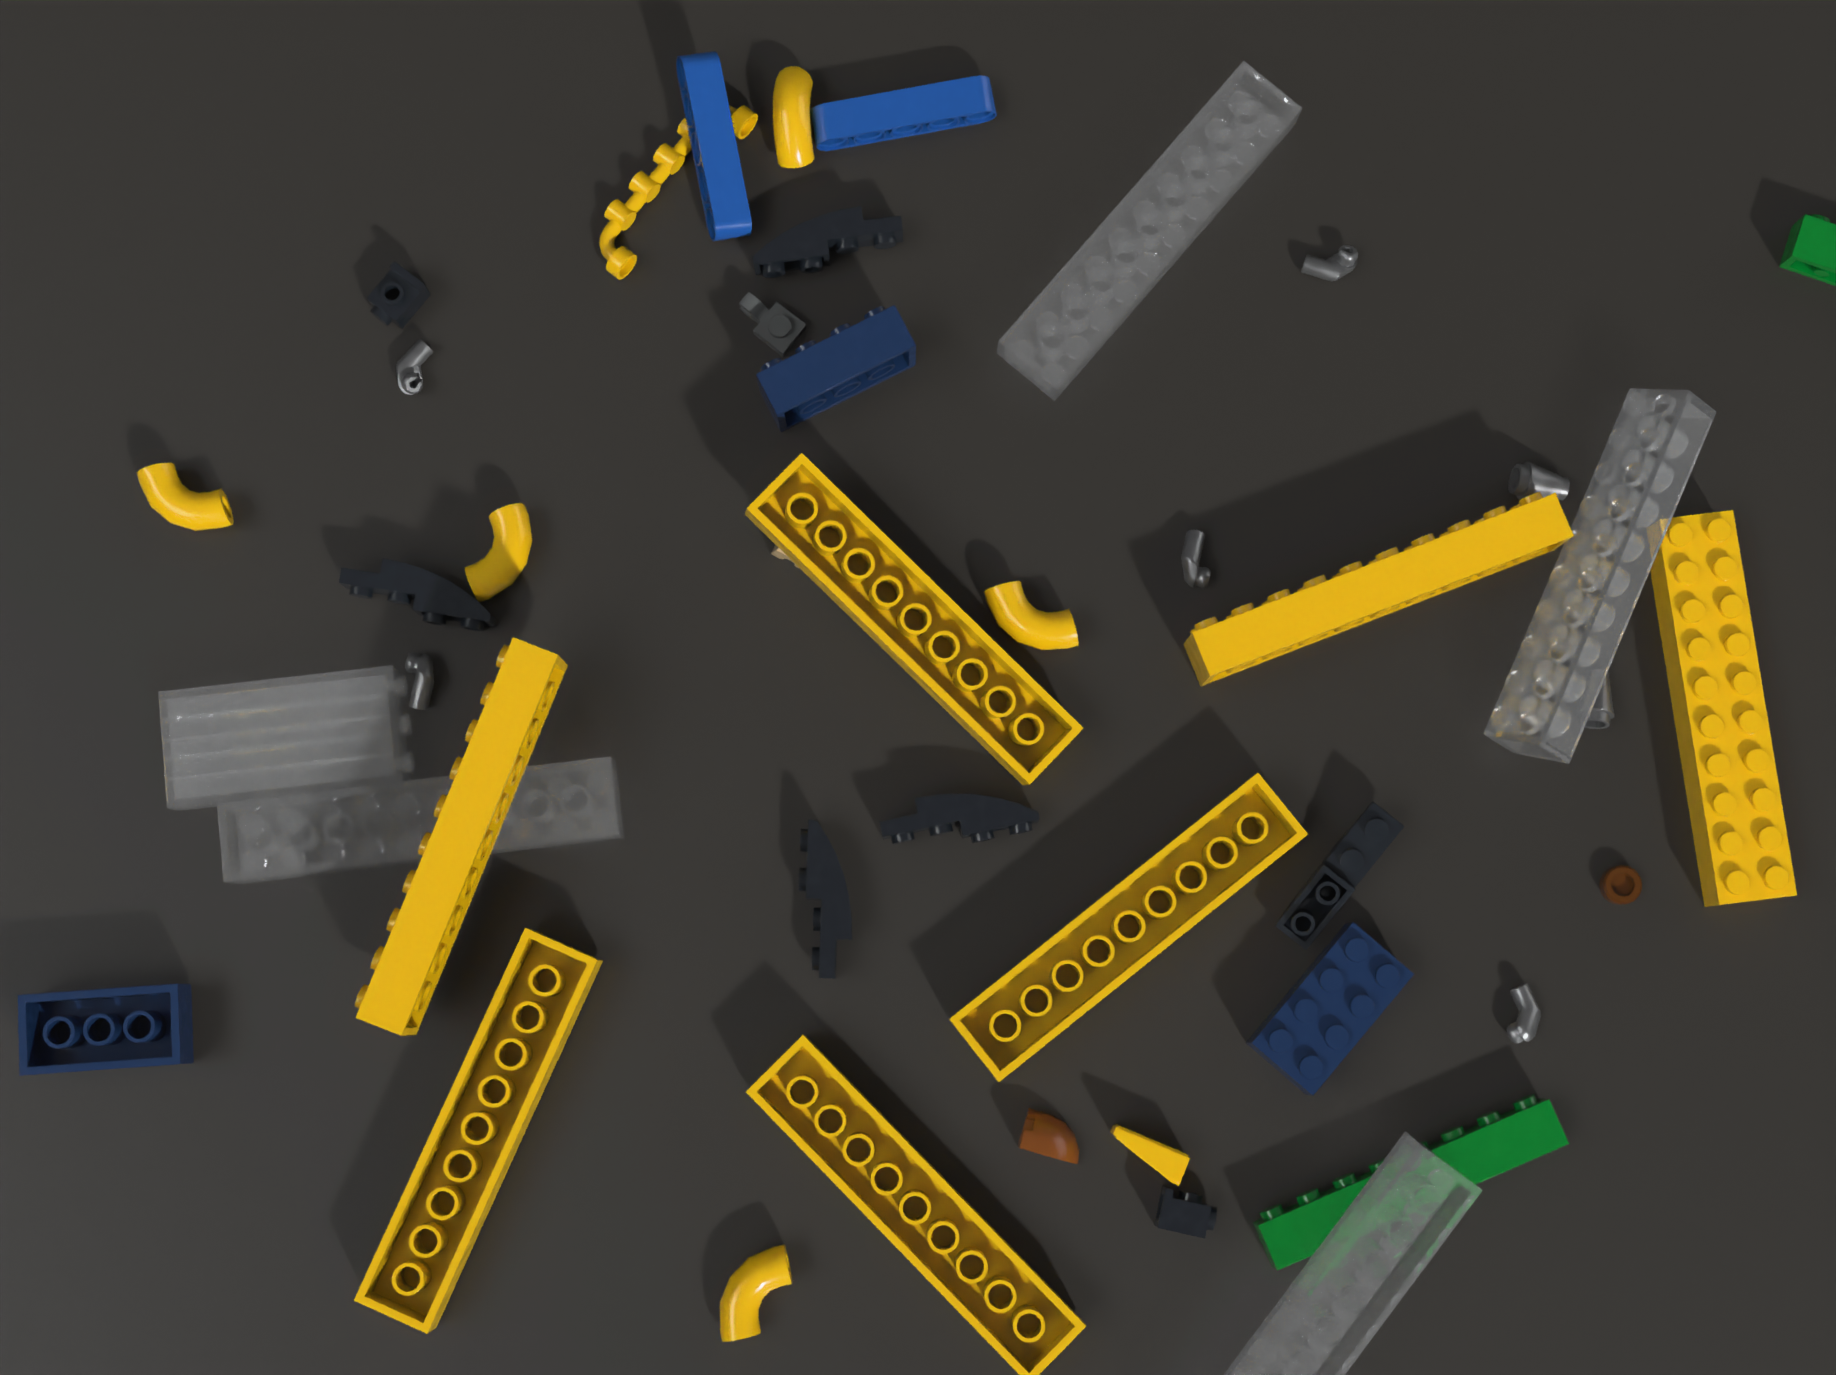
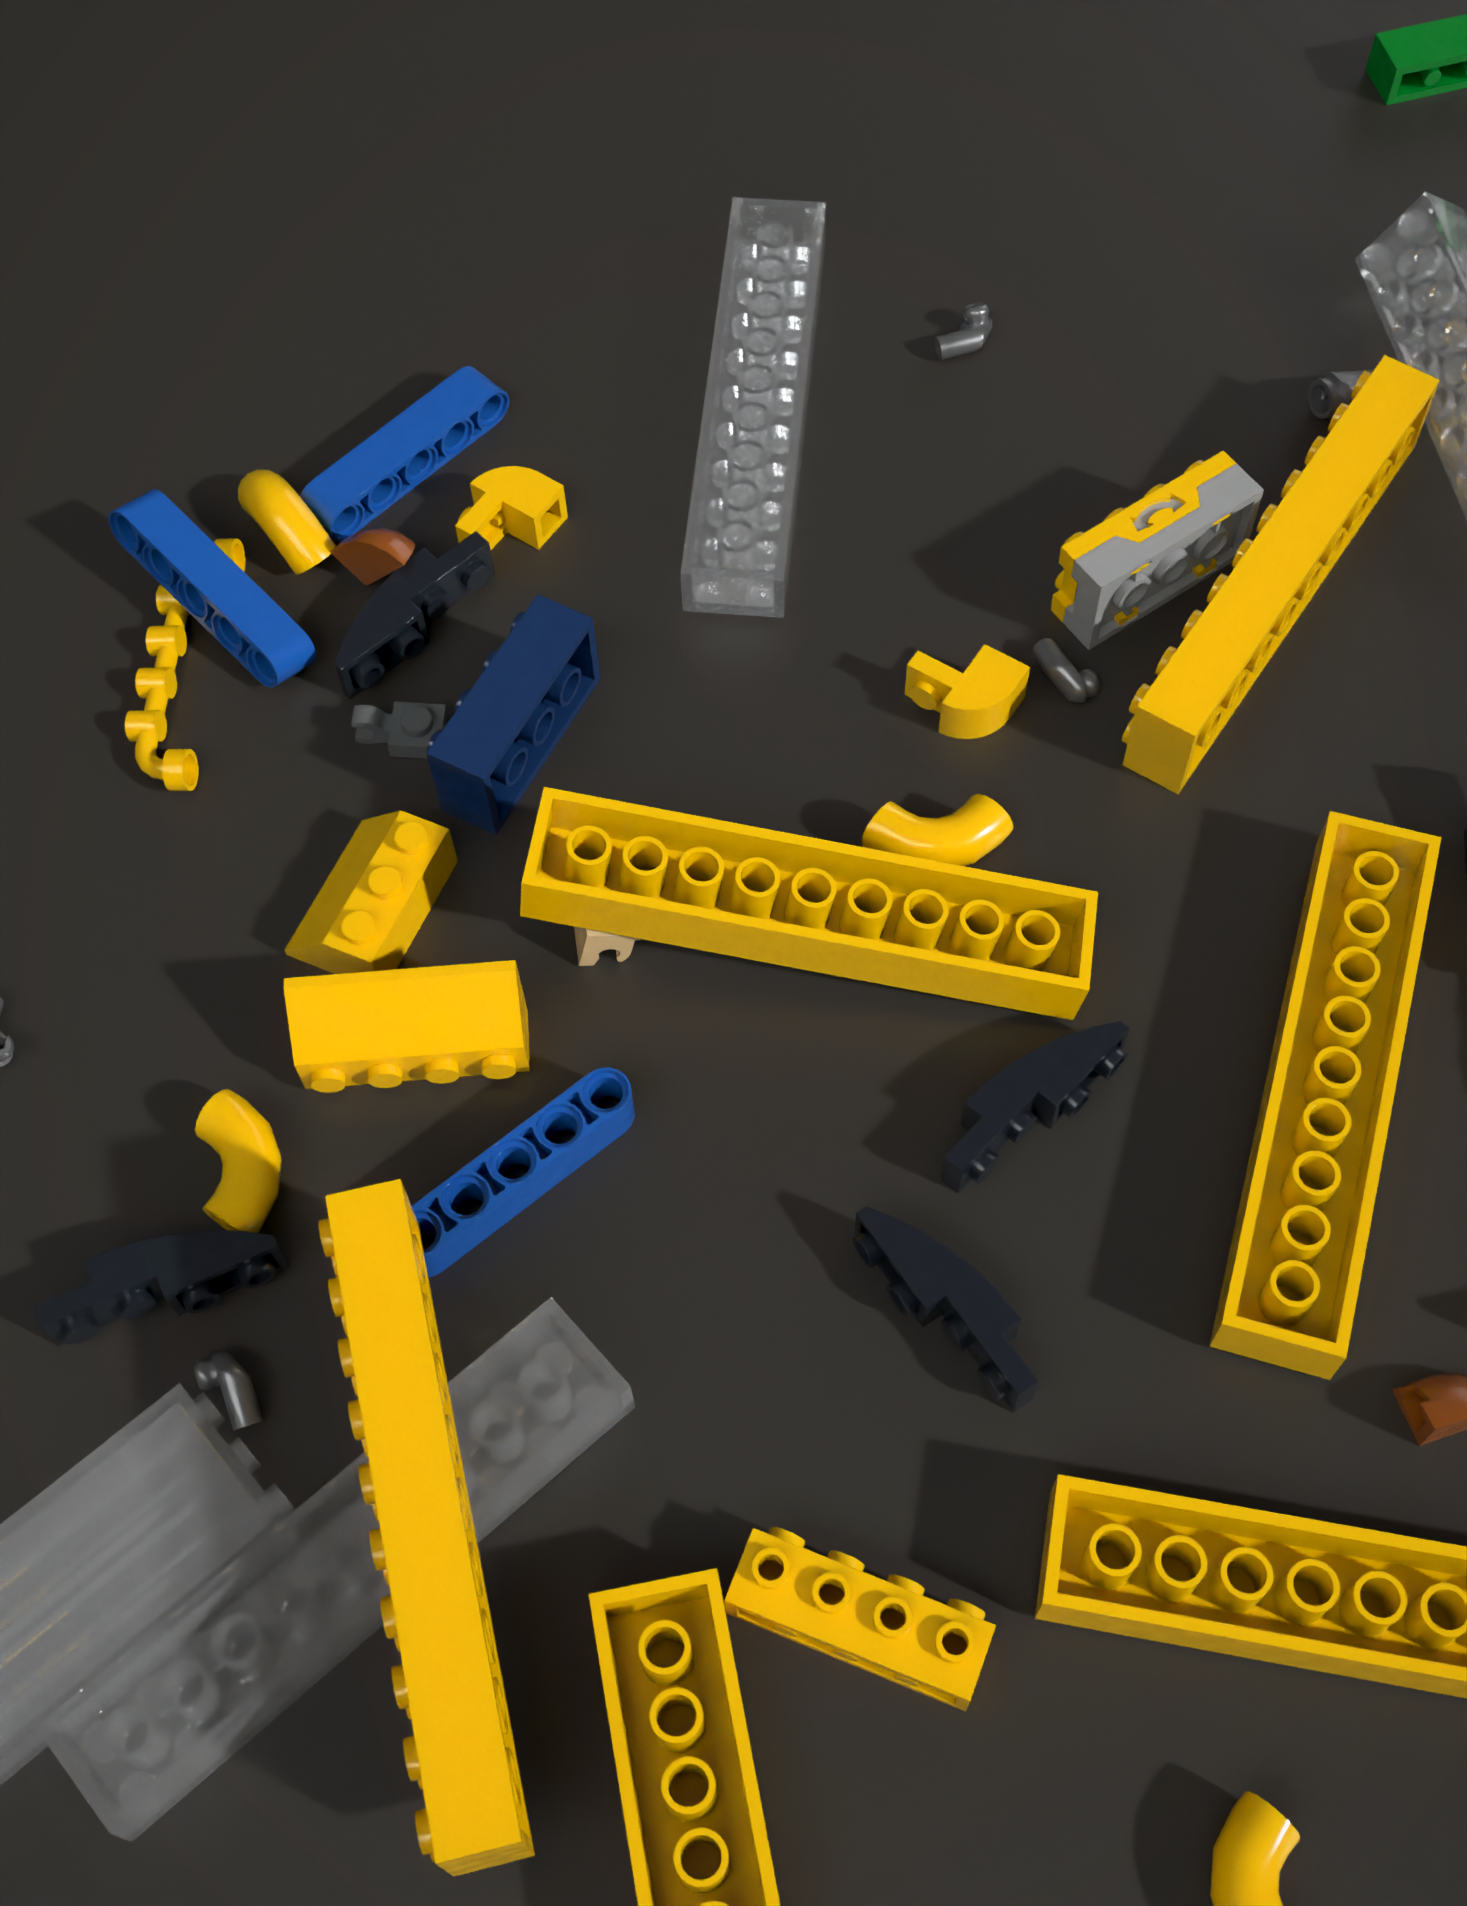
camera: 30 degrees left, 20 degrees down
(642, 536) = (408, 1025): none -> yellow slope
(658, 1029) = (860, 1617): none -> yellow brick
(666, 667) = (527, 1146): none -> blue beam
(679, 431) = (376, 895): none -> yellow slope
(833, 185) = (374, 553): none -> dark orange brick
(943, 200) = (514, 503): none -> yellow brick
(1123, 545) = (971, 701): none -> yellow brick
(1309, 520) = (1154, 548): none -> light grey piece

